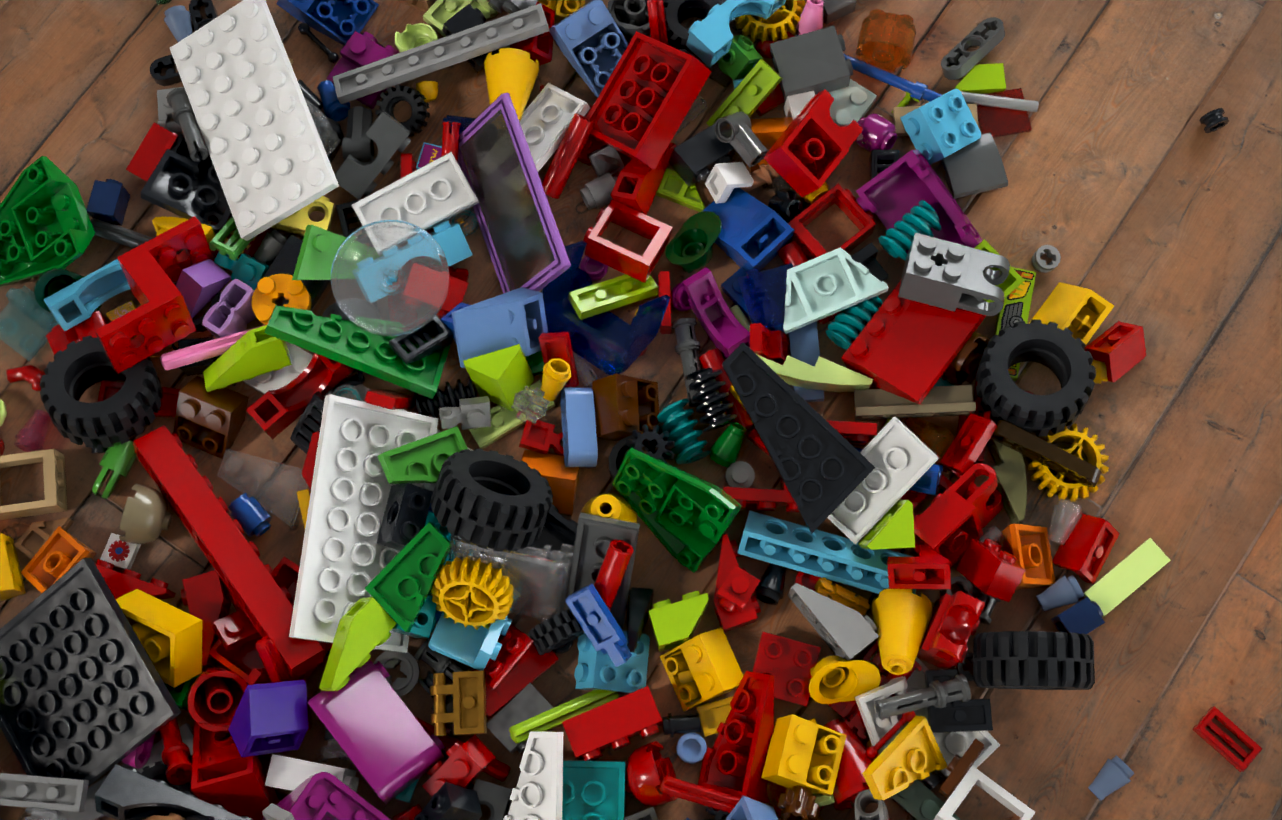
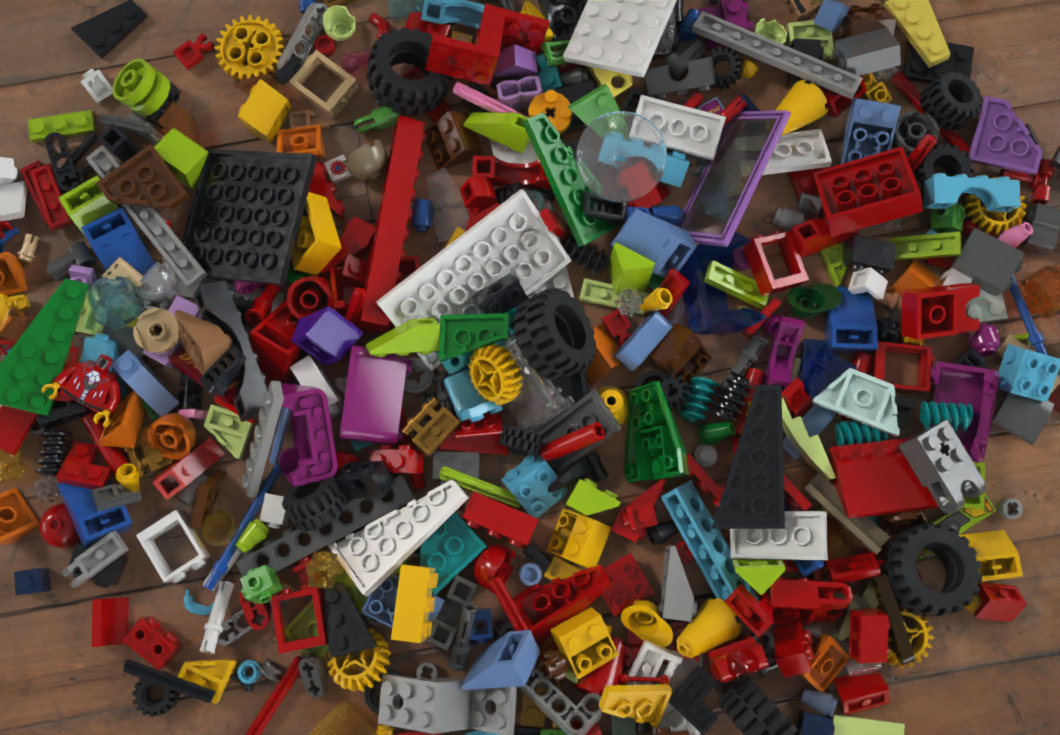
camera: 45 degrees right, 5 degrees up
(287, 443) = (478, 195): none -> red brick
(421, 459) = (540, 274): bright green wing -> none
(470, 414) = (591, 275): light grey plate -> none
(486, 288) = (670, 214): none -> blue cone
(567, 155) = (789, 181): red piece -> none
(599, 624) = (545, 459): blue hinge -> none
(659, 587) = (599, 472): none -> black pin
(737, 131) = (901, 260): dark grey piece -> none
(842, 595) = (694, 578): light orange axle -> none
(936, 694) = (691, 684): dark grey pin -> none
(1041, 489) = (869, 635): none -> red brick

